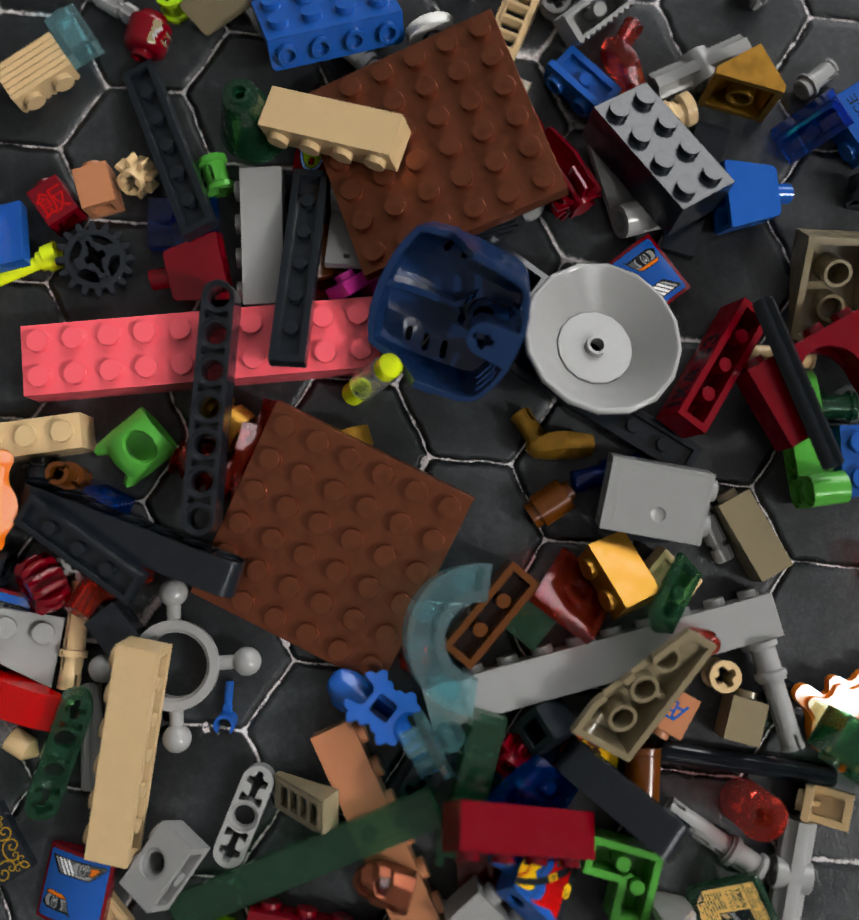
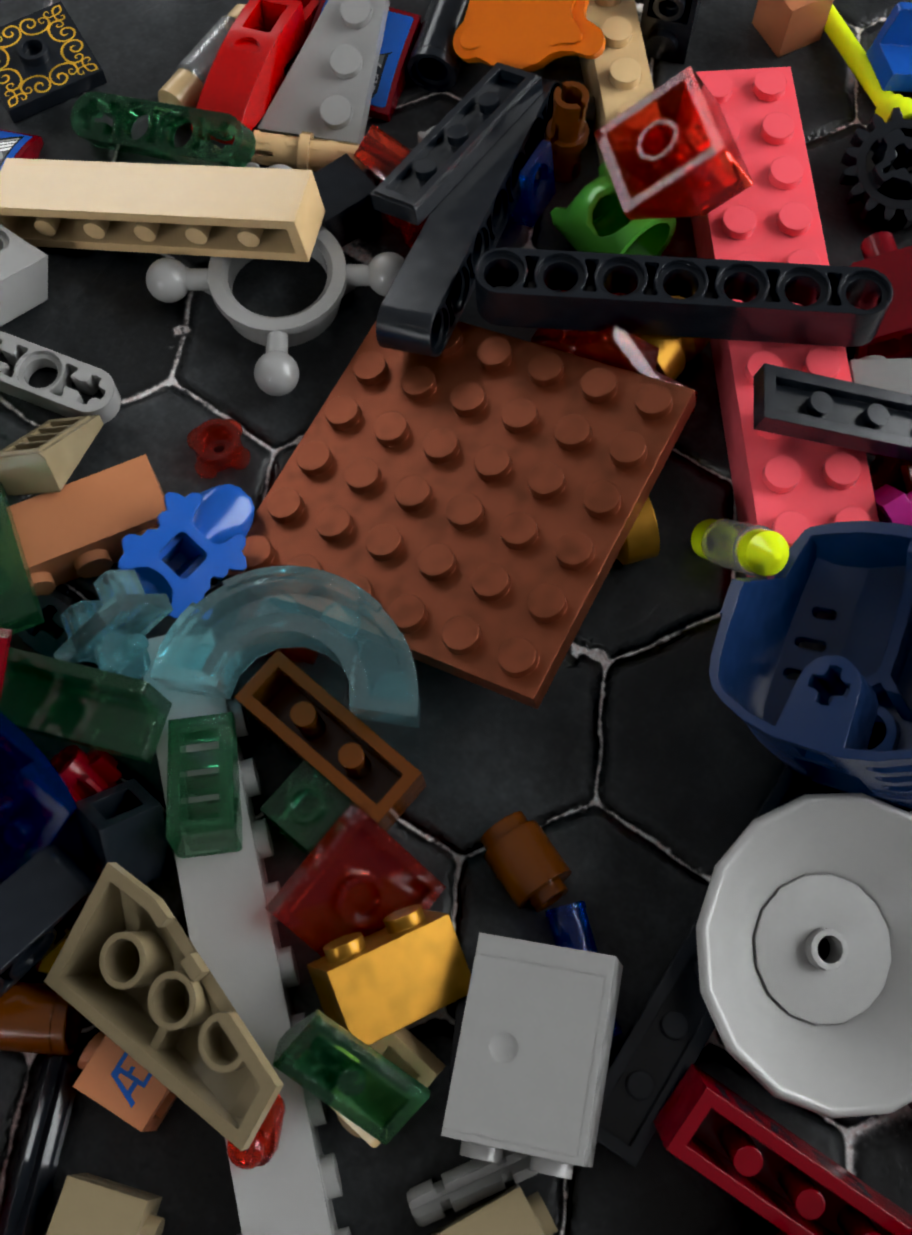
camera: 90 degrees right, 15 degrees down
(42, 583) = (409, 103): dark red gear -> none
(102, 407) = (673, 153): none -> clear red slope
(227, 709) = (197, 355): blue hand -> none
(290, 704) = (216, 433): none -> clear red plate
(521, 697) = (207, 825): none -> clear green slope
(551, 445) = (635, 870): pearl gold arm -> none
(731, 676) = (173, 1173): tan bush -> none

